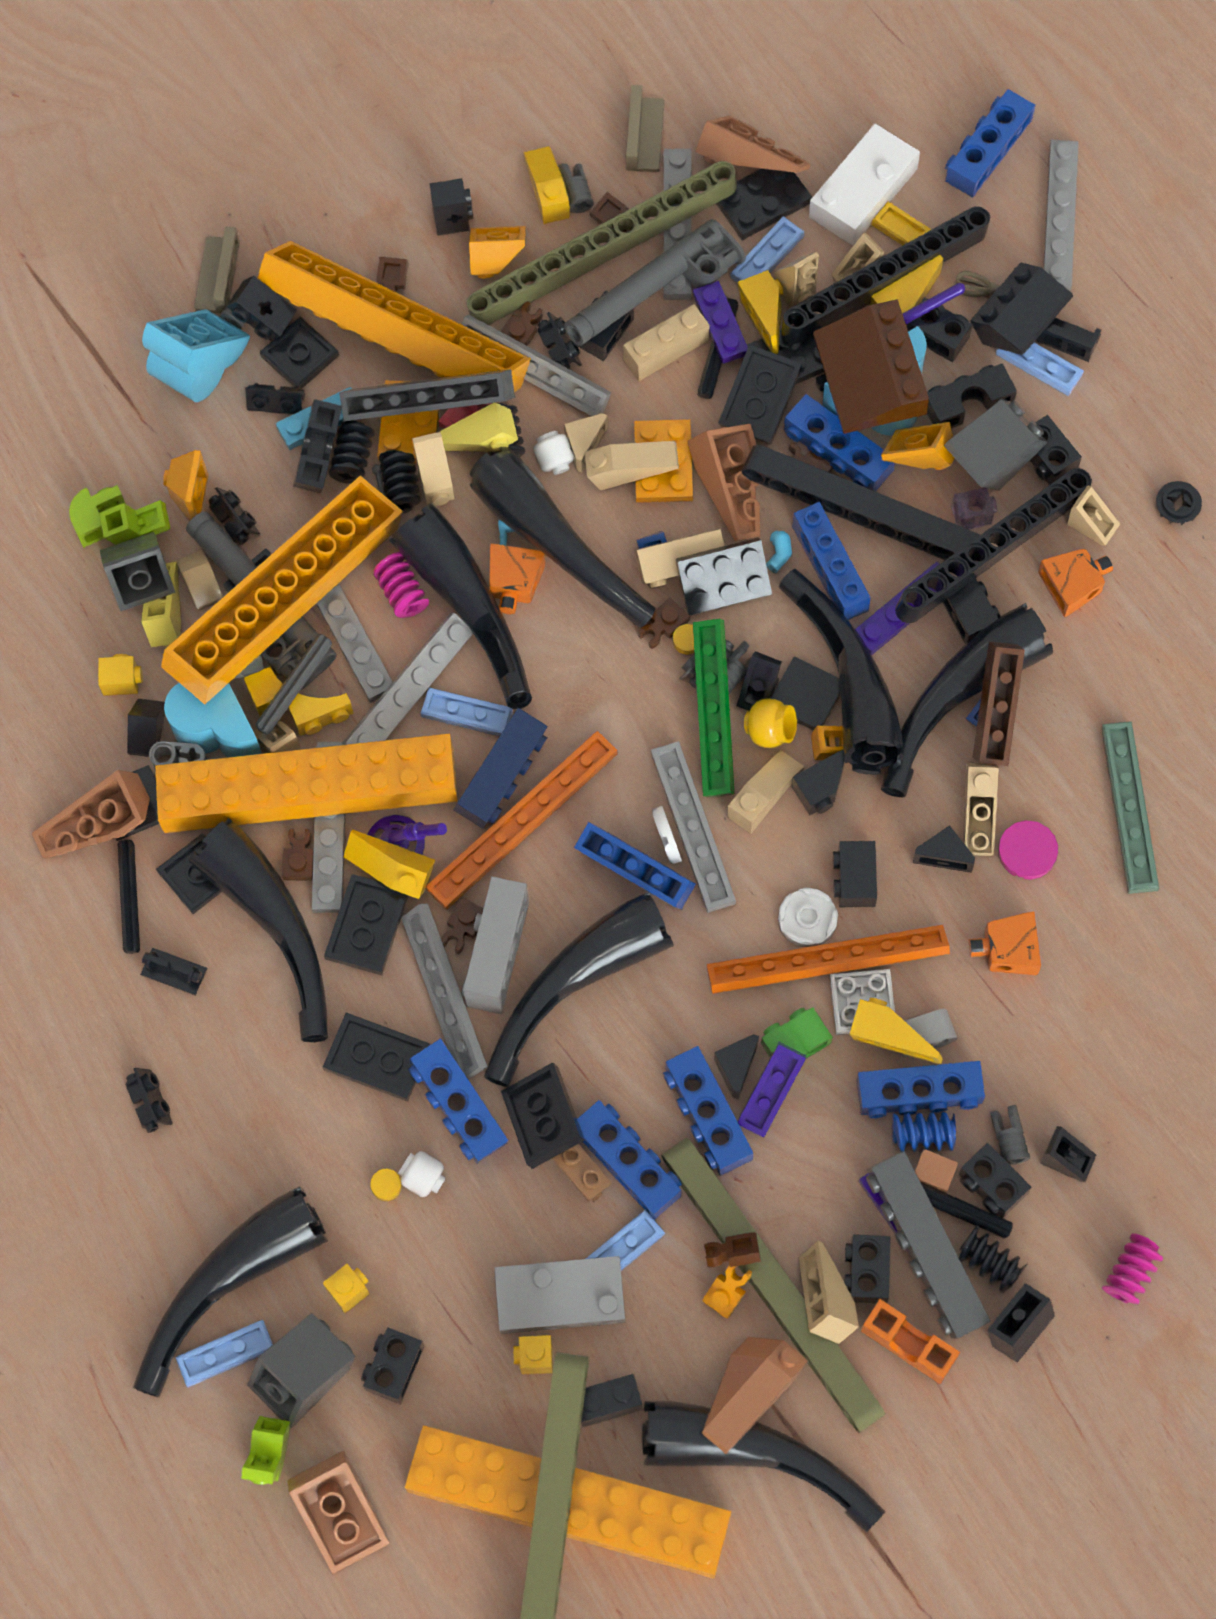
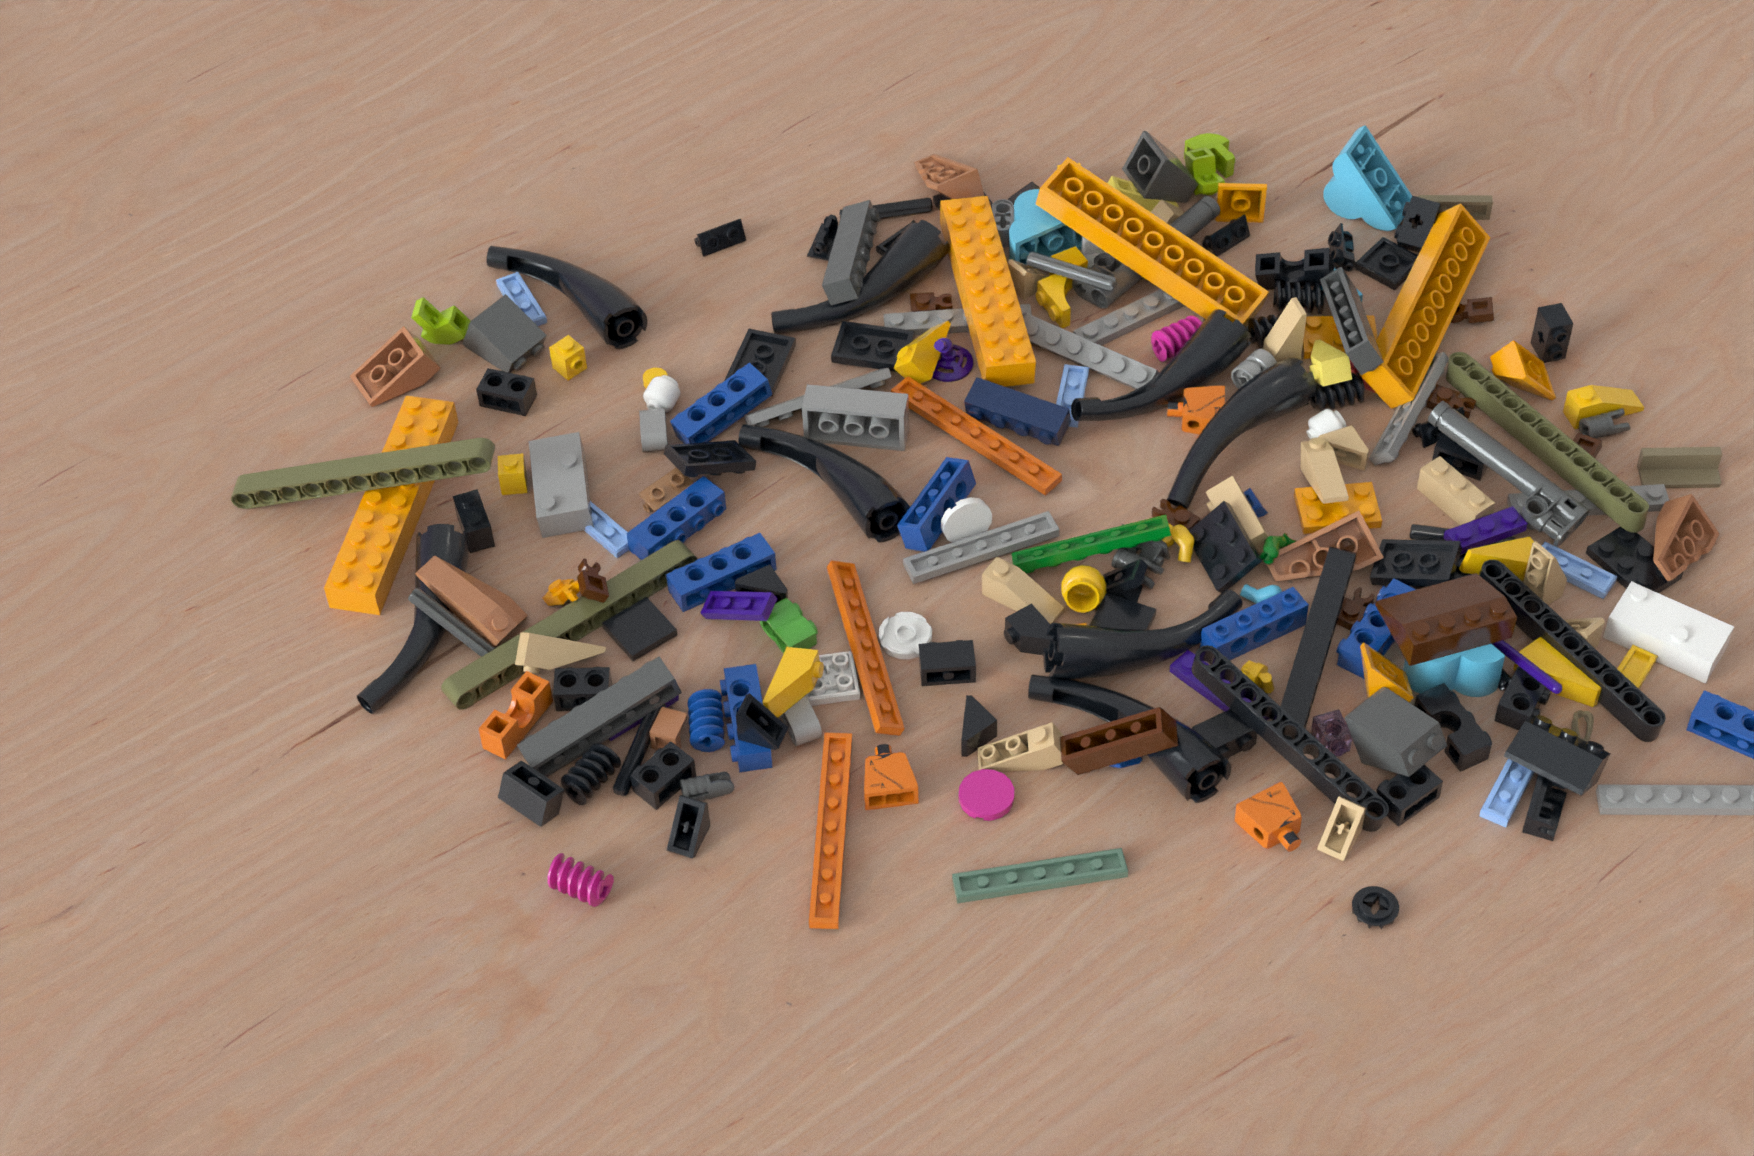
camera: 85 degrees right, 20 degrees down
(223, 934) = (850, 252): none -> dark grey brick
(467, 516) = (1253, 364): none -> light grey wheel
(476, 1185) = (653, 429): none -> light grey beam
(708, 612) = (1184, 540): none -> yellow arm
(729, 526) = (1272, 547): none -> green arm
(779, 1207) = (639, 629): none -> black tile
(782, 1414) = (450, 622): none -> dark grey axle
(895, 570) = (1259, 675): none -> yellow piece
(957, 1066) = (759, 724): none -> black slope
(1070, 1007) = (830, 831): none -> orange plate

